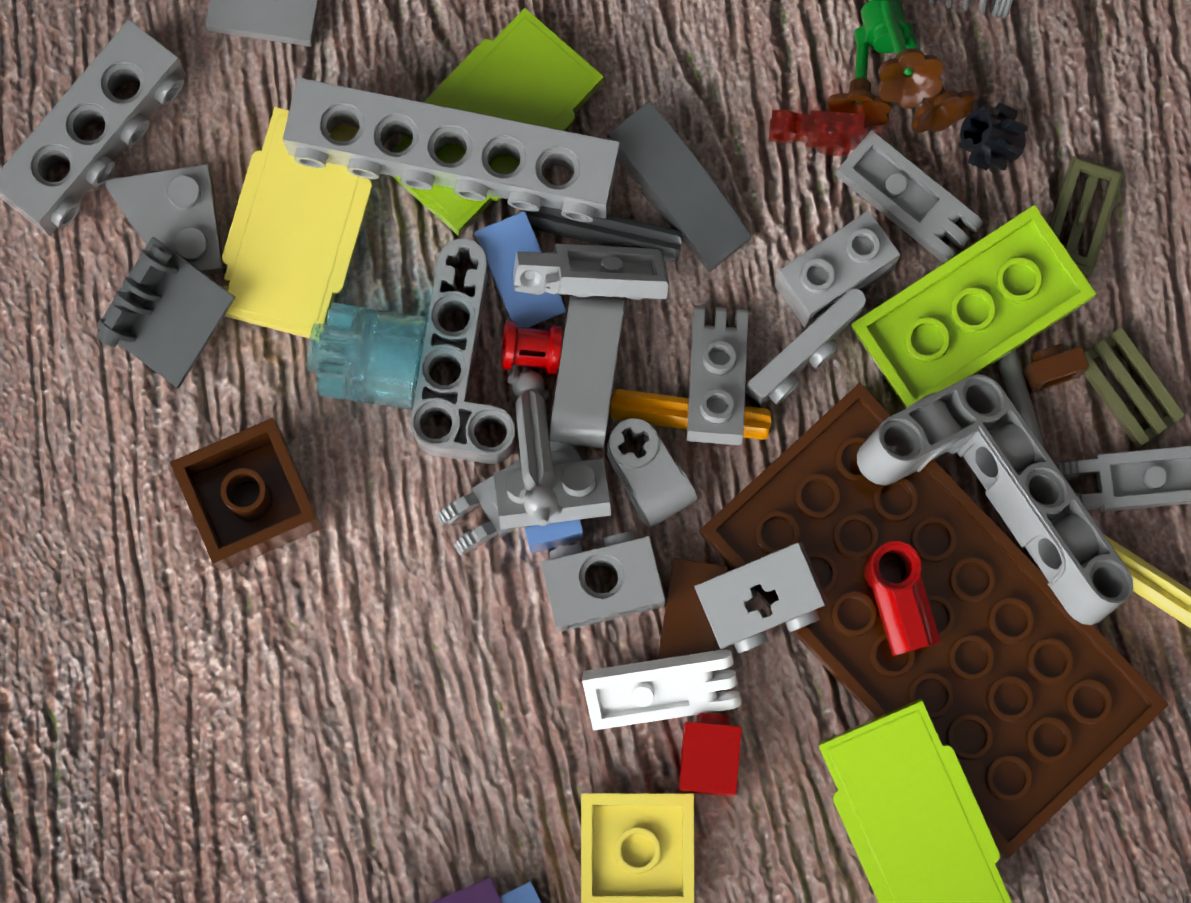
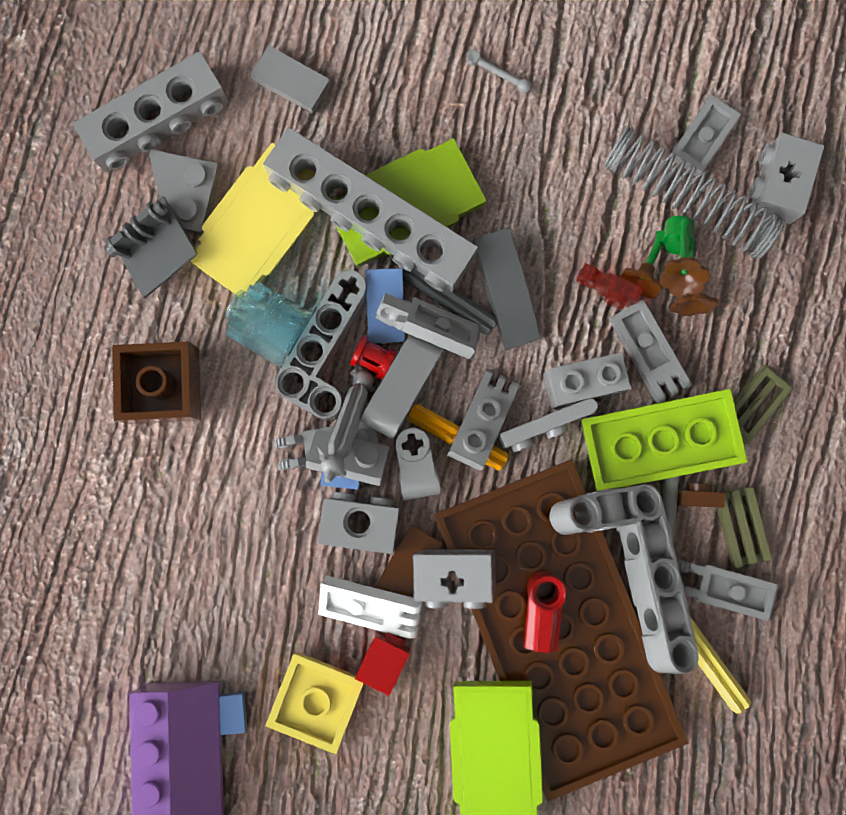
camera: 20 degrees right, 5 degrees up
(993, 136) = (719, 333): black gear -> none

